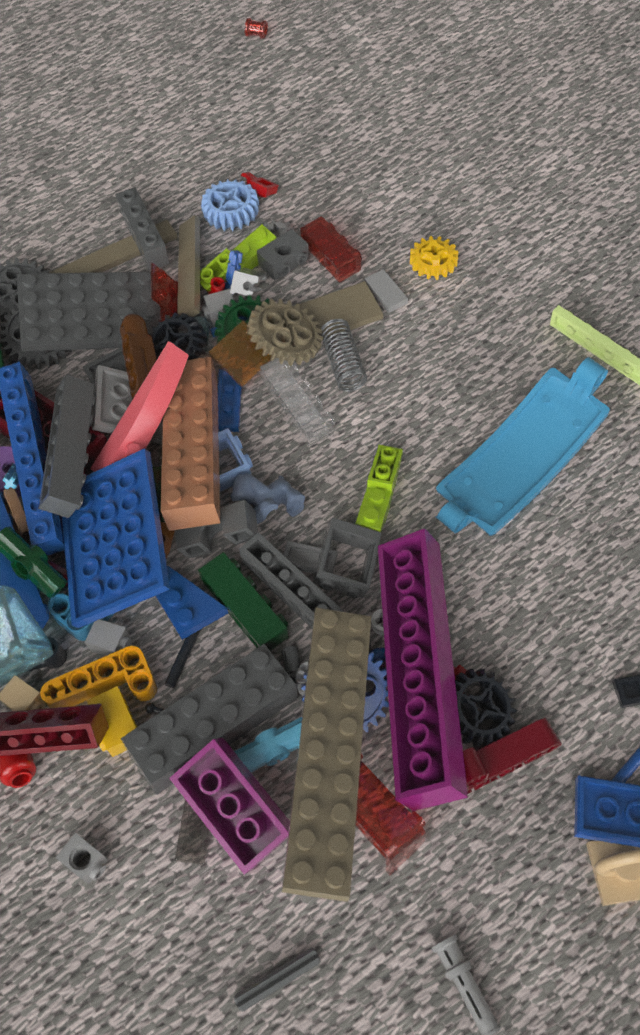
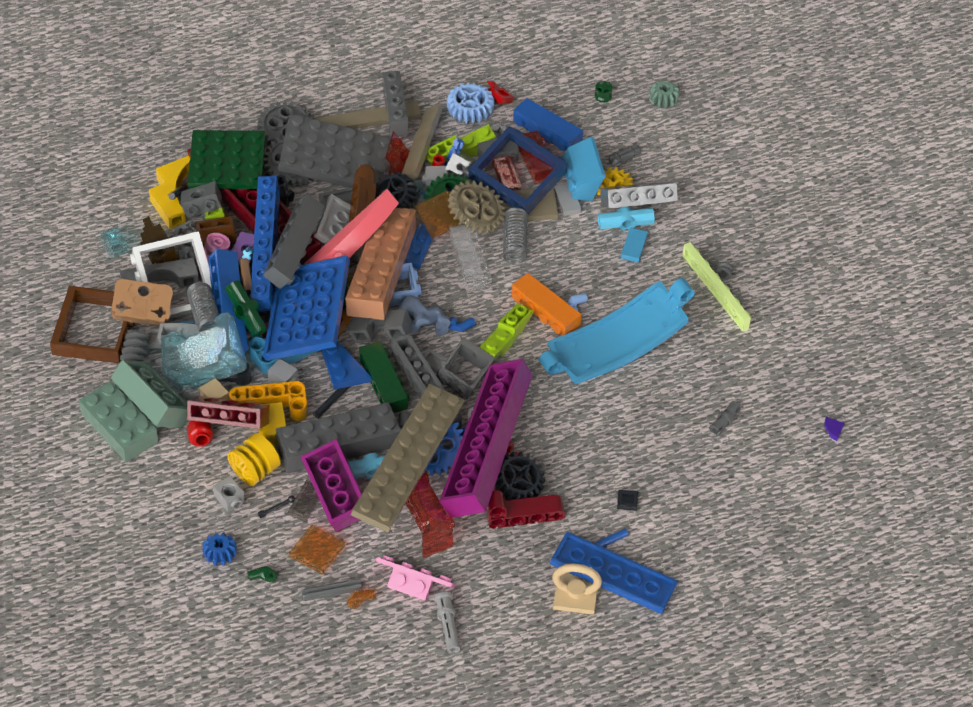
camera: 10 degrees right, 10 degrees down
(40, 379) = (286, 195): none -> black piece
(83, 971) = (219, 548): none -> blue gear
(101, 796) = (254, 459): none -> yellow wheel
(168, 980) = (263, 573): none -> dark green arm
(172, 835) = (262, 513): none -> black hinge
(234, 912) = (317, 549): none -> clear orange tile
(303, 279) = (506, 172): none -> clear red plate
(317, 306) = (507, 195): none -> dark blue window
(318, 496) = (461, 326): none -> blue arm
(320, 980) = (358, 597): none -> clear orange arm
(335, 207) = (549, 125): none -> blue brick
(378, 151) = (603, 91): none -> dark green wheel
(389, 924) = (411, 581): none -> bright pink bracket
(395, 248) = (583, 169): none -> dark azure slope
(416, 437) = (546, 305): none -> orange brick
(431, 219) = (624, 155): none -> dark grey axle
(445, 430) = (577, 299): none -> light blue arm
(447, 136) = (664, 94): none -> sand green gear
(466, 296) = (626, 218): none -> medium azure piece
(472, 262) = (638, 194): none -> brick
(488, 326) = (634, 244): none -> dark azure tile
(610, 328) = (727, 267): none -> dark grey bush

